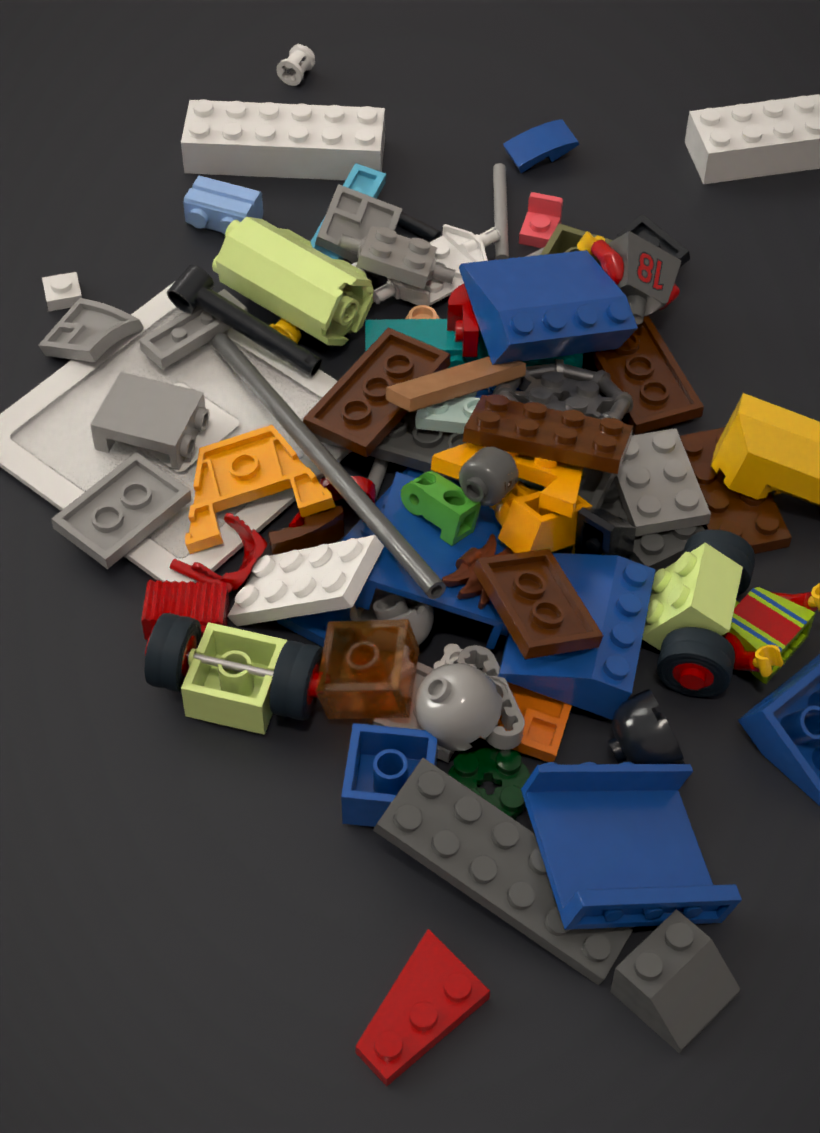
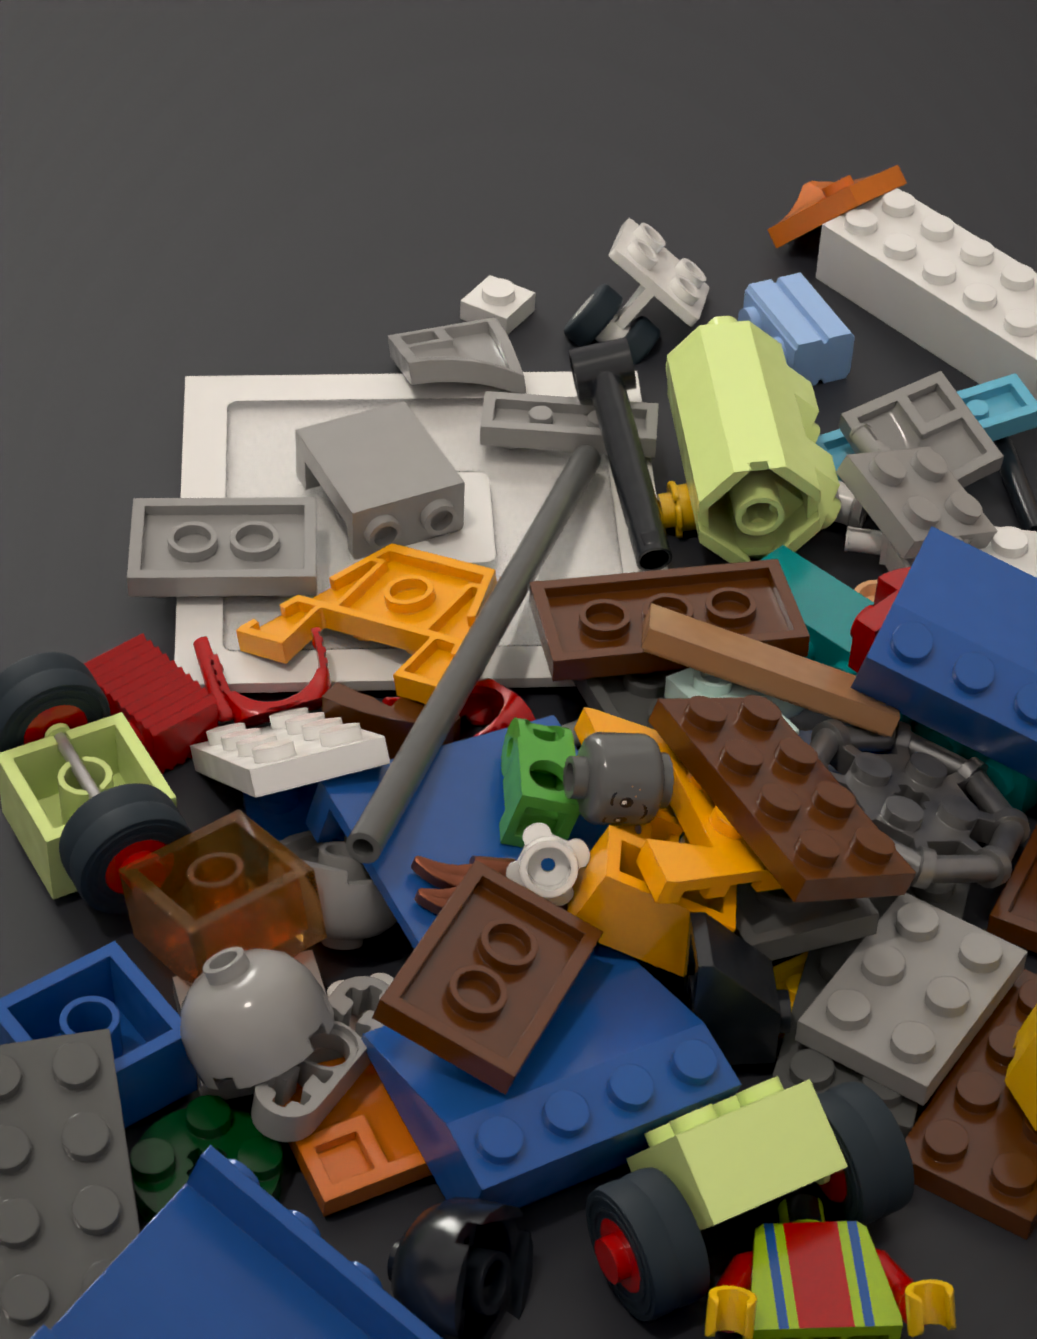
camera: 45 degrees right, 10 degrees down
(133, 259) = (672, 281): none -> white plate
(159, 127) = (827, 200): none -> orange plate
(504, 533) = (568, 858): none -> white plate

